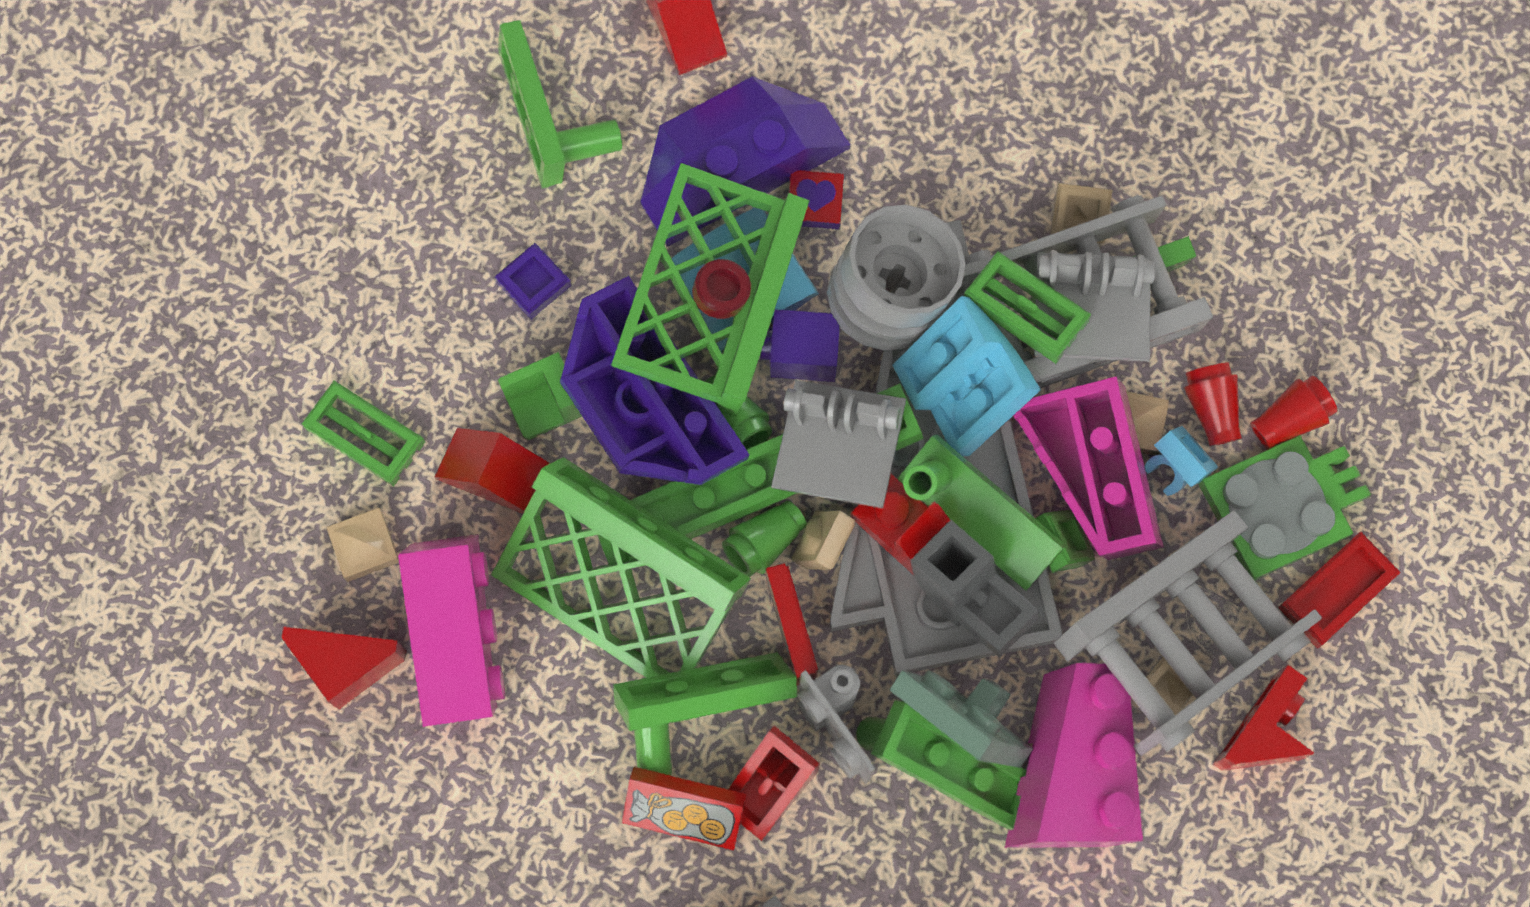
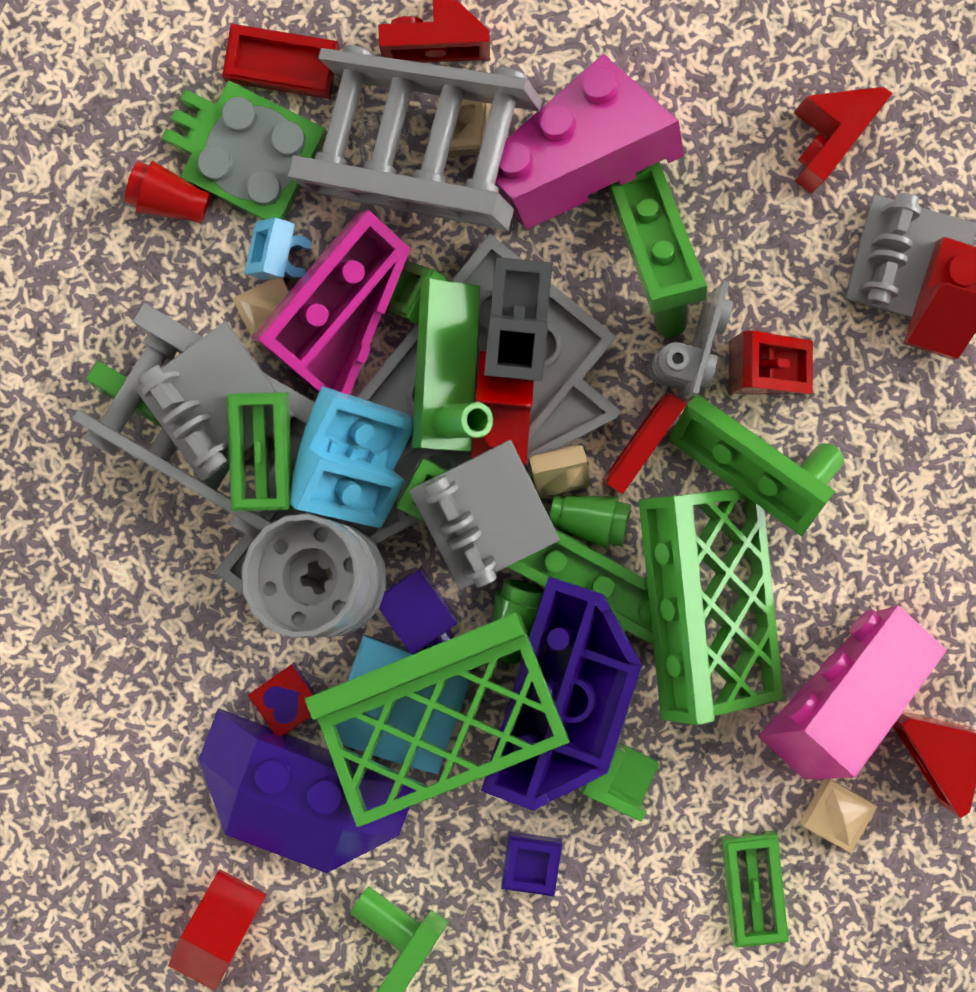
camera: 130 degrees left, 15 degrees up
(491, 468) = (705, 767): red slope -> none
(683, 808) = (840, 413): tile -> none
(721, 288) = (437, 707): dark red tile -> none
(965, 720) = (621, 253): sand green hinge -> none
(1078, 205) = (129, 485): tan tile -> none
(1215, 401) = (204, 261): red cone -> none

